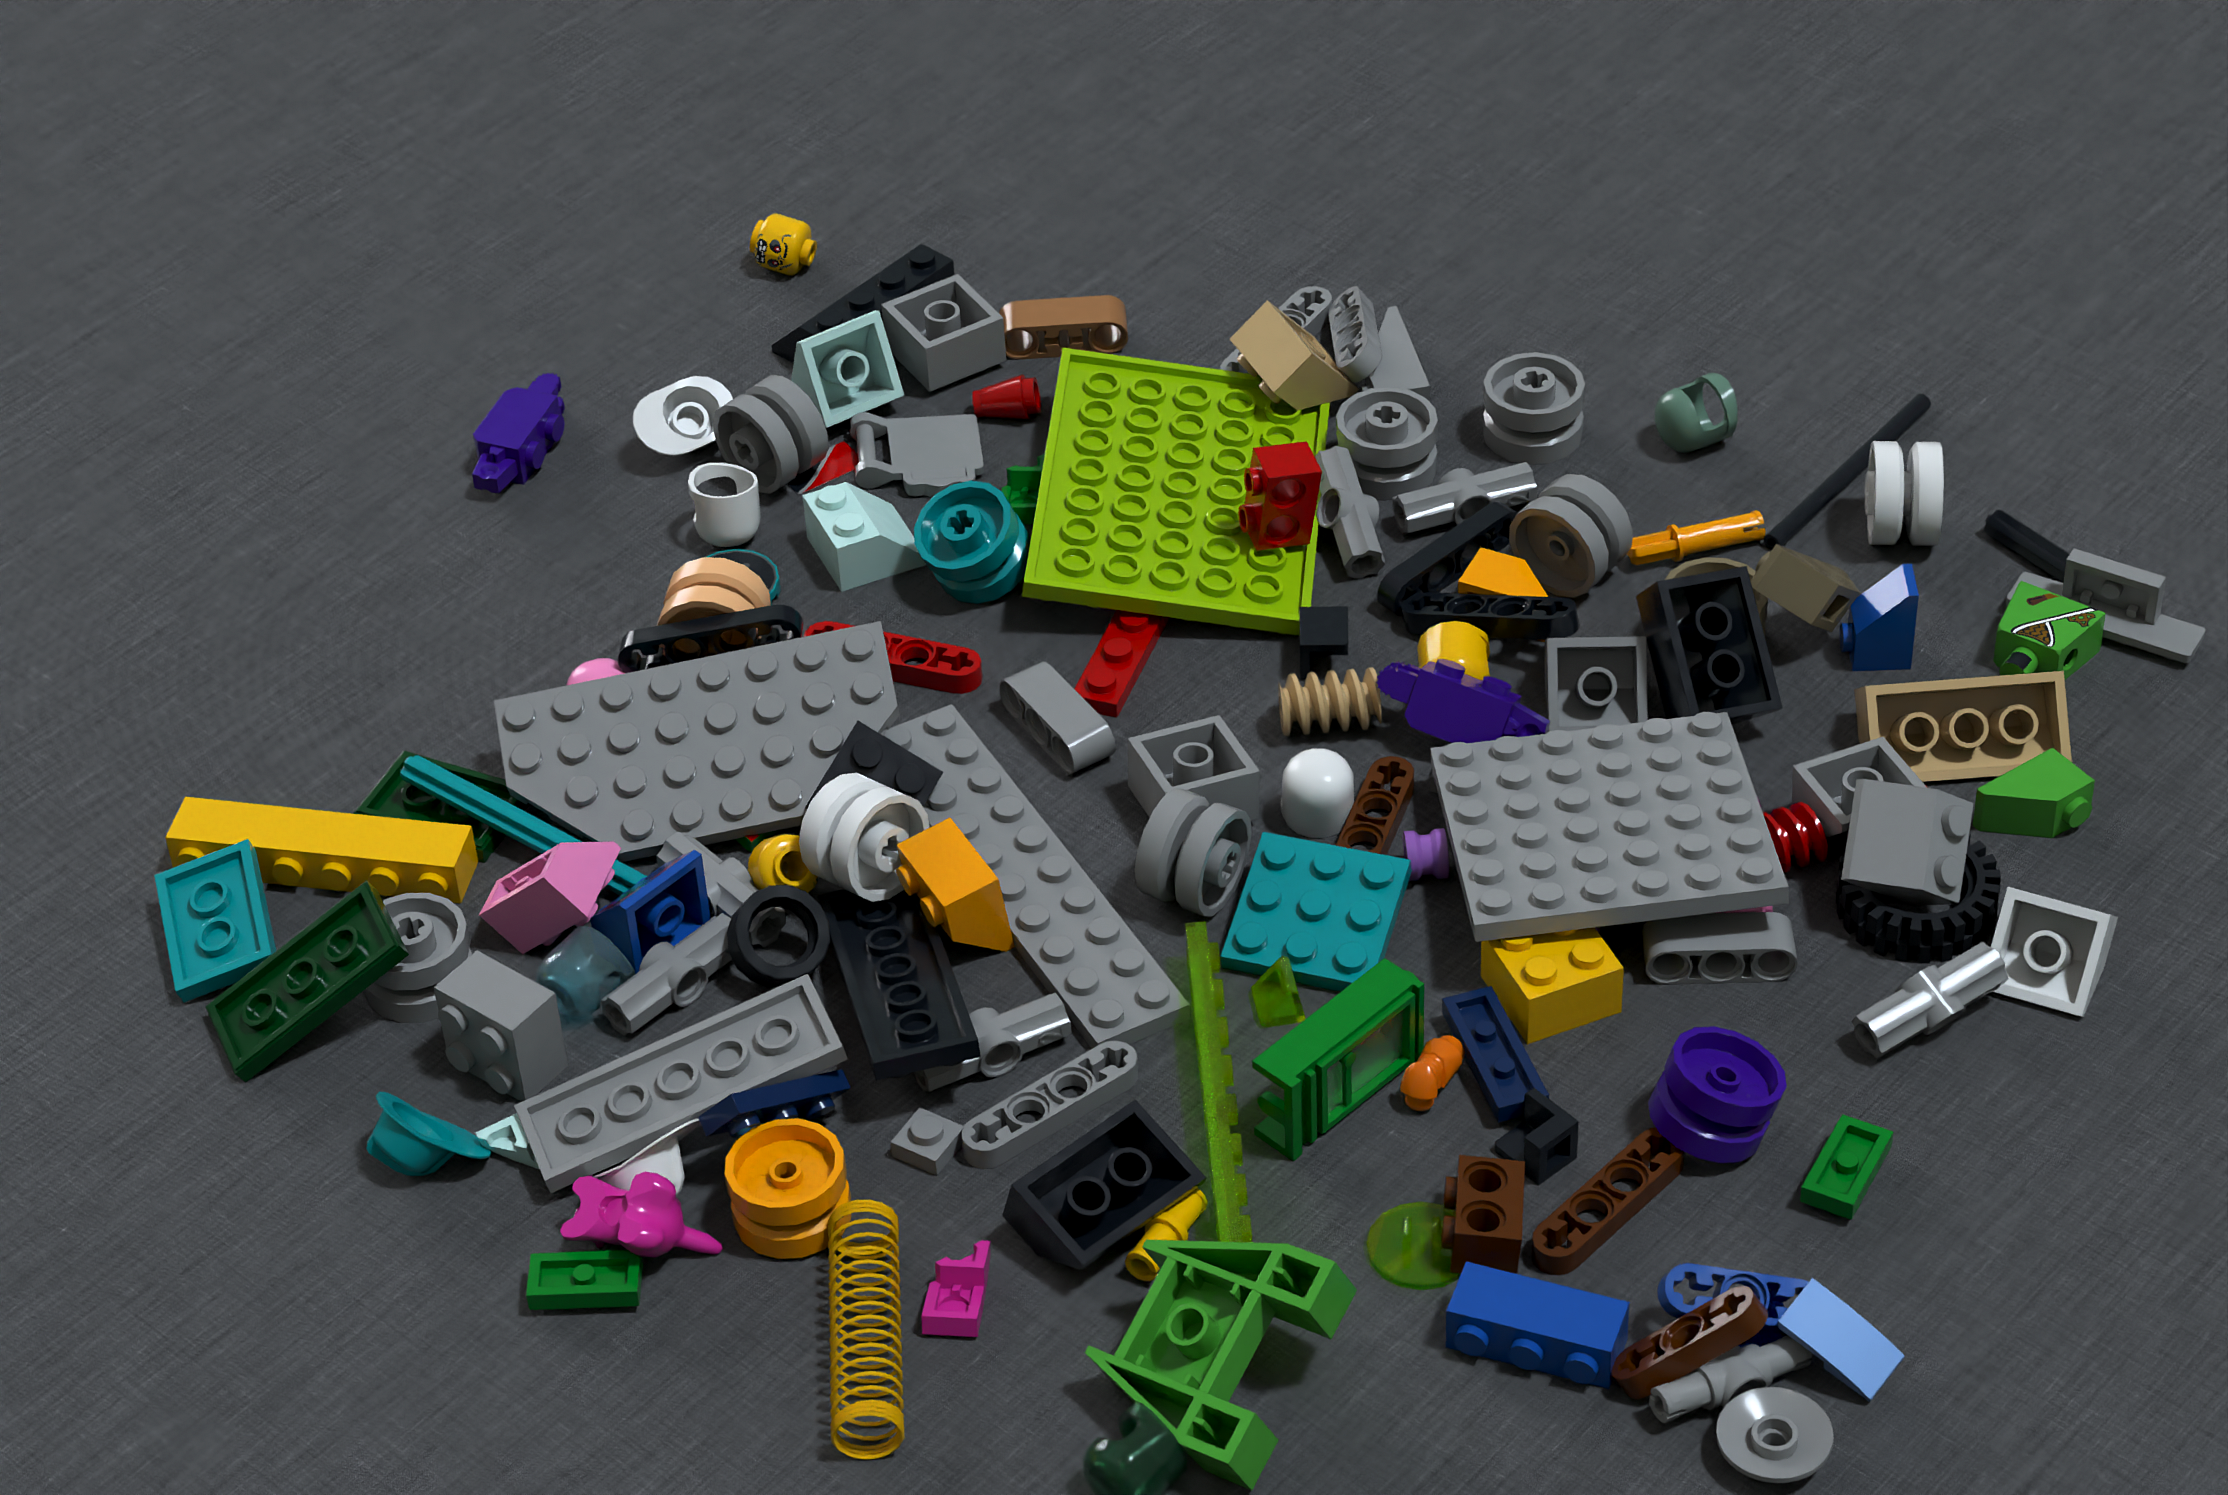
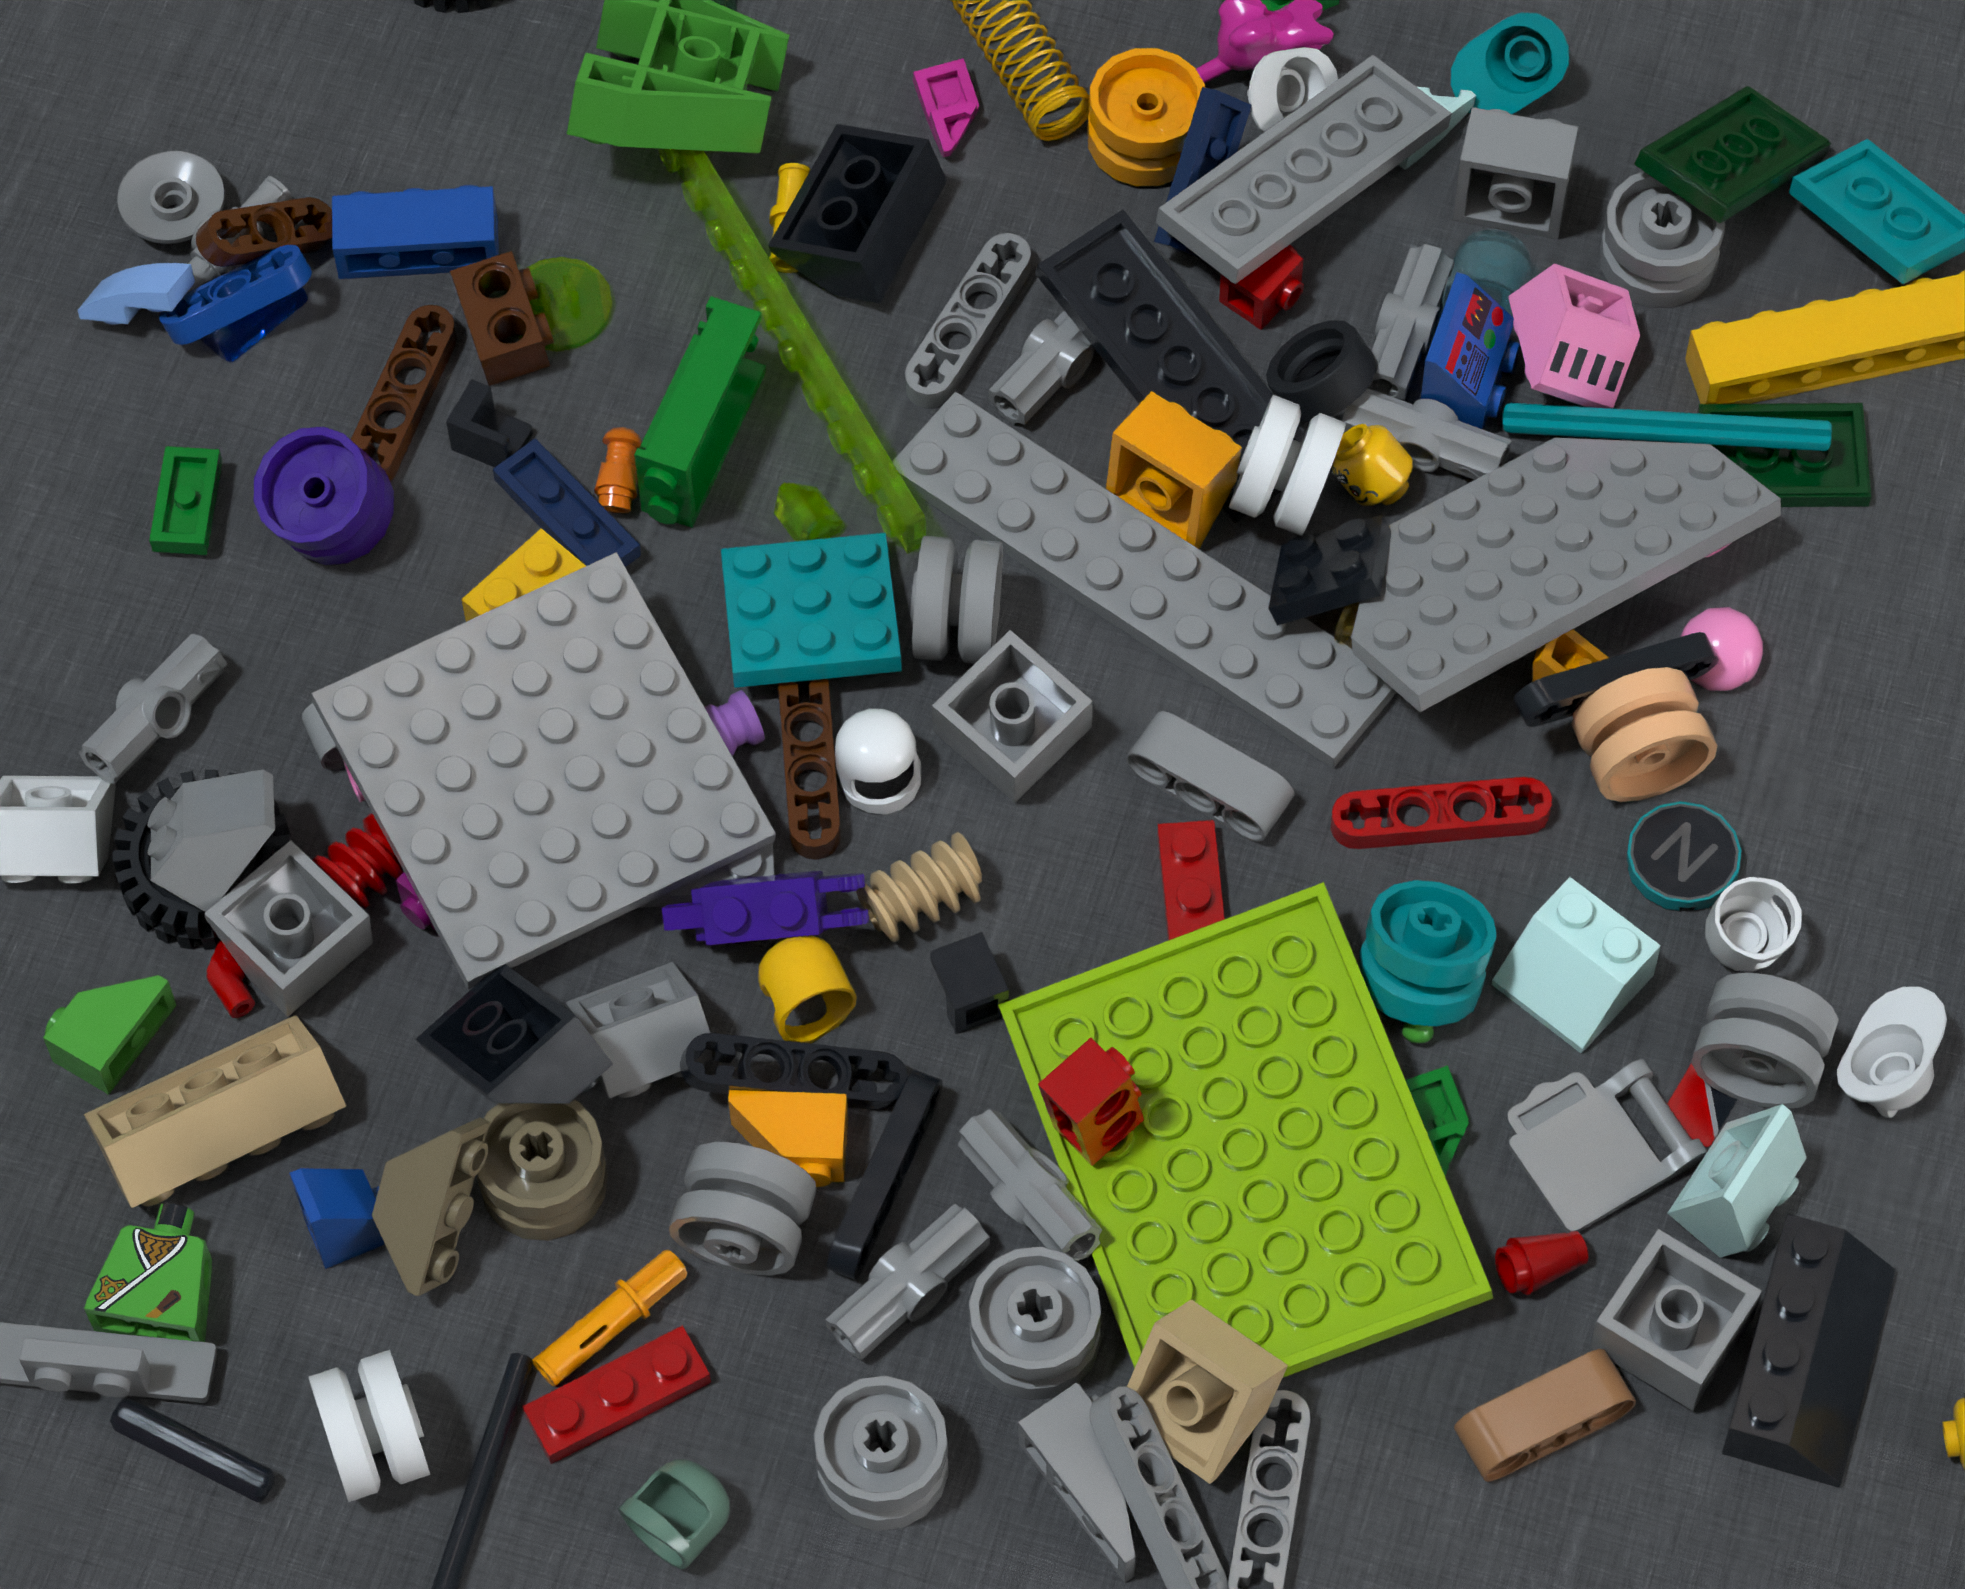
camera: 155 degrees right, 20 degrees up
(927, 1141) = (1056, 233): light grey plate -> none
(1706, 503) = (616, 1394): none -> red plate

